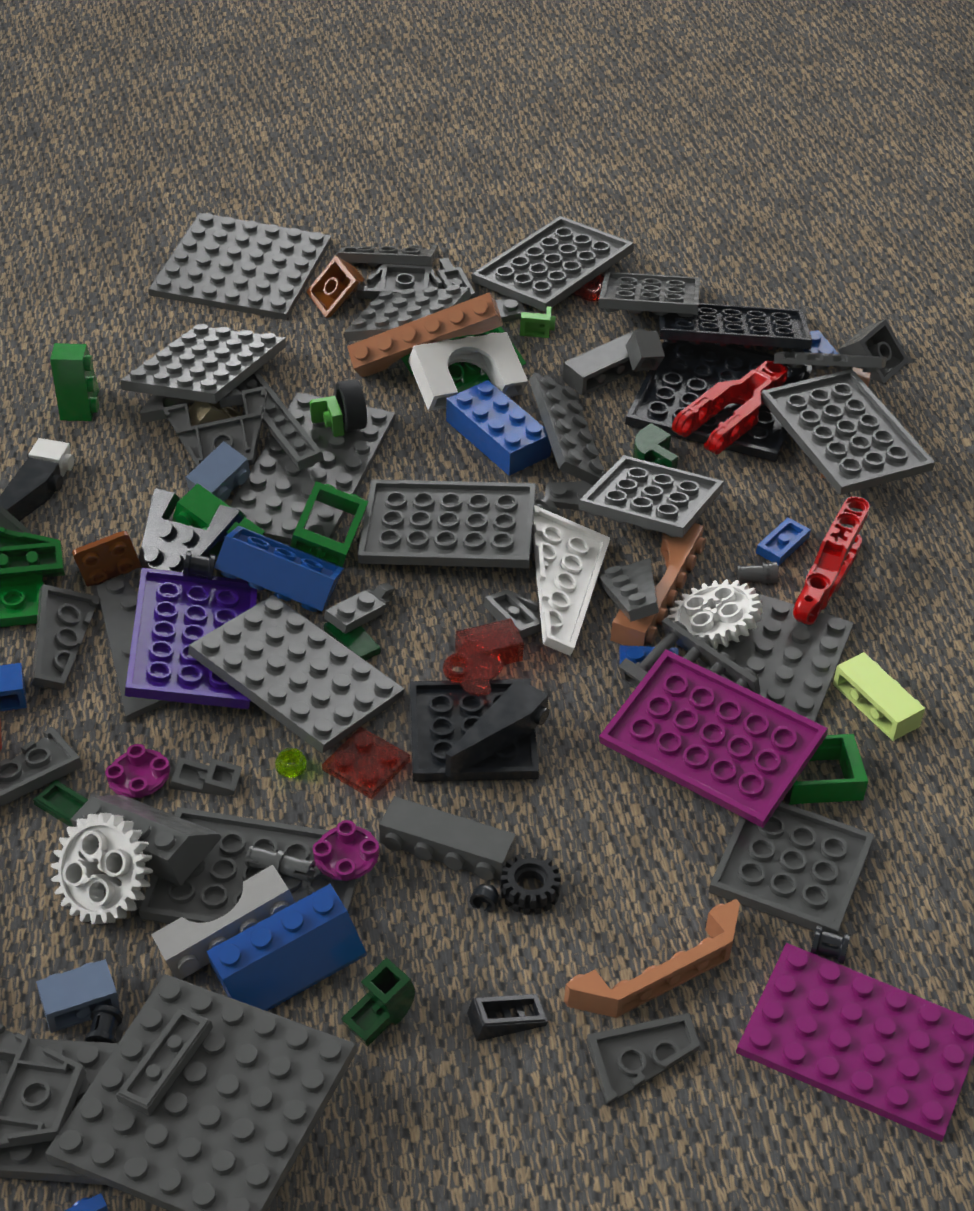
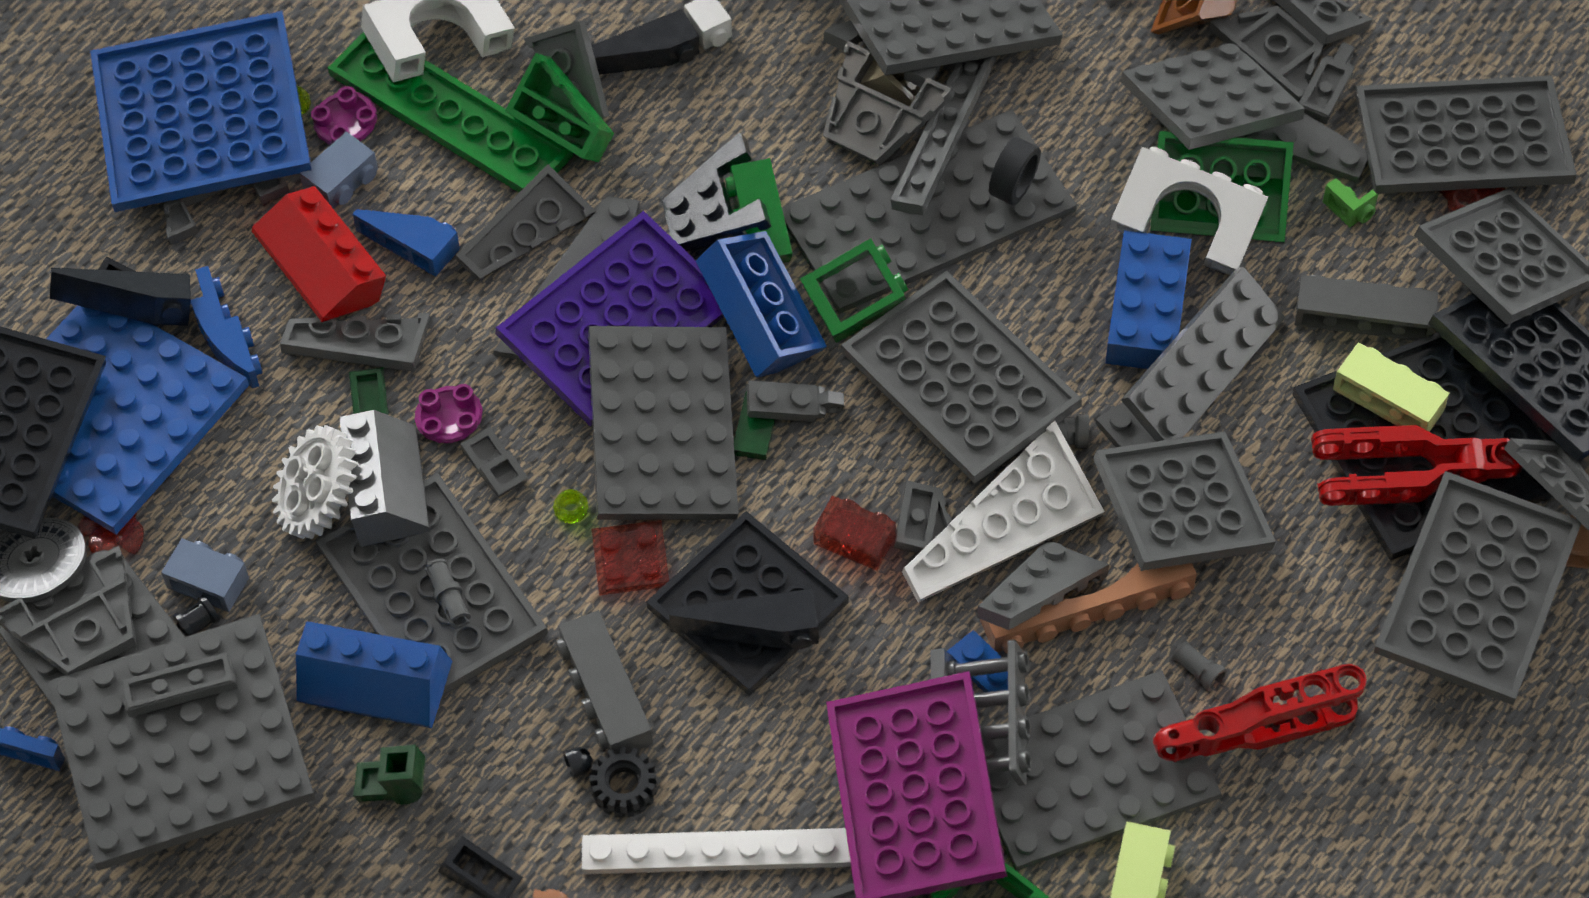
camera: 50 degrees right, 15 degrees up
(106, 558) = (633, 175): dark orange bracket -> none
(186, 942) = (394, 613): light grey arch -> none
(199, 565) = (687, 246): black bush -> none
(220, 471) = (823, 156): sand blue brick -> none
(329, 412) = (988, 153): bright green bracket -> none
(346, 852) = (507, 627): magenta dish -> none
(463, 319) = (1185, 141): nougat arch -> none
(476, 667) = (809, 546): clear red plate -> none
(633, 876) = (715, 851): none -> white plate
(645, 350) = (1394, 325): dark grey brick -> none
(653, 445) = (1268, 443): brick -> none
(678, 380) = (1390, 389): none -> yellowish green brick
(719, 612) = (1088, 674): white gear -> none
(783, 541) = (1270, 653): blue plate -> none

